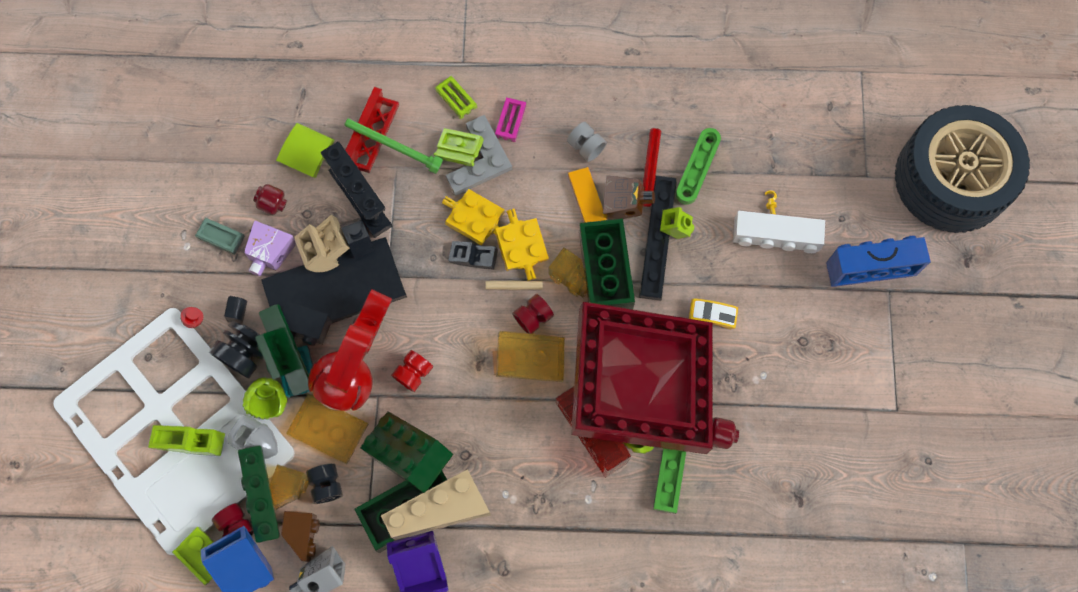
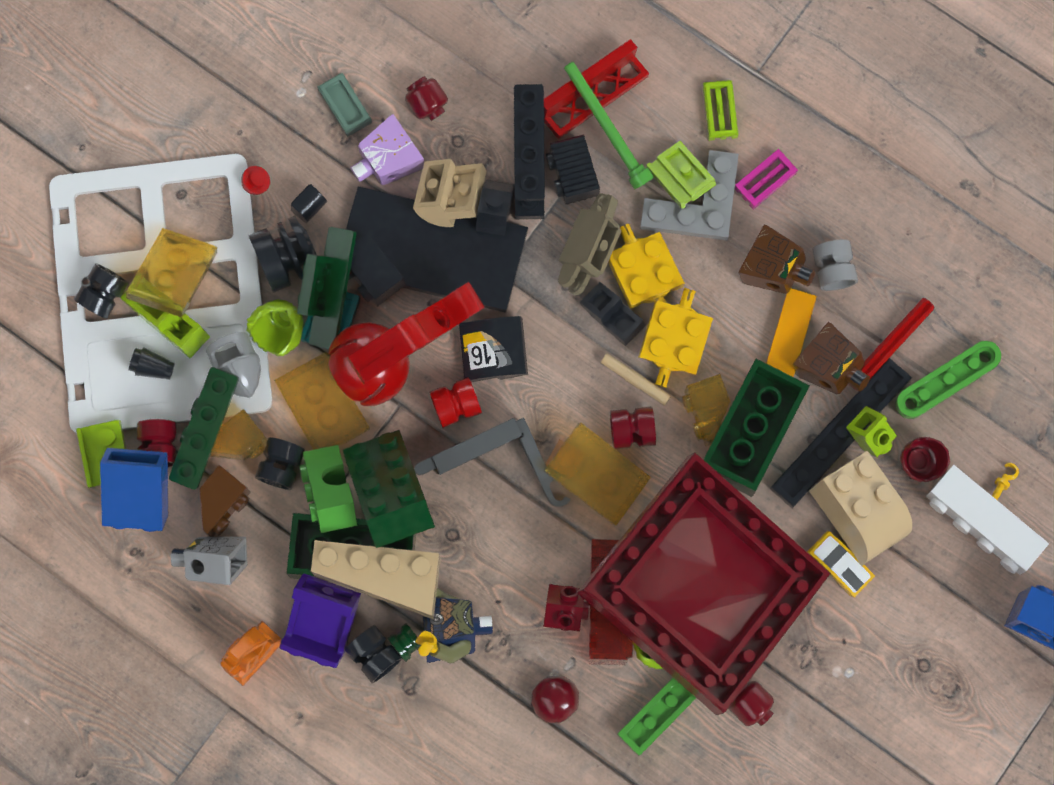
camera: 35 degrees right, 5 degrees up
(132, 451) = (101, 290): none -> black wheel
(172, 409) = (171, 272): none -> clear yellow tile
(195, 477) = (150, 364): none -> black cone
(303, 150) = (503, 63): lime slope -> none
(365, 478) = (327, 489): none -> bright green arch
(391, 185) = (574, 169): none -> black brick
(413, 323) = (493, 348): none -> slope
(431, 222) = (589, 244): none -> dark tan hinge
(449, 381) = (487, 442): none -> dark grey hinge
(466, 564) = (374, 655): none -> black wheel
(482, 542) = (404, 642): none -> dark green wheel
(507, 514) = (452, 630): none -> torso
(551, 162) = (775, 263): none -> reddish brown torso
(568, 452) = (565, 608): none -> dark red brick
(600, 514) = (555, 699): none -> dark red hair
(704, 270) = (863, 507): none -> tan brick
(718, 219) = (924, 459): none -> dark red hair

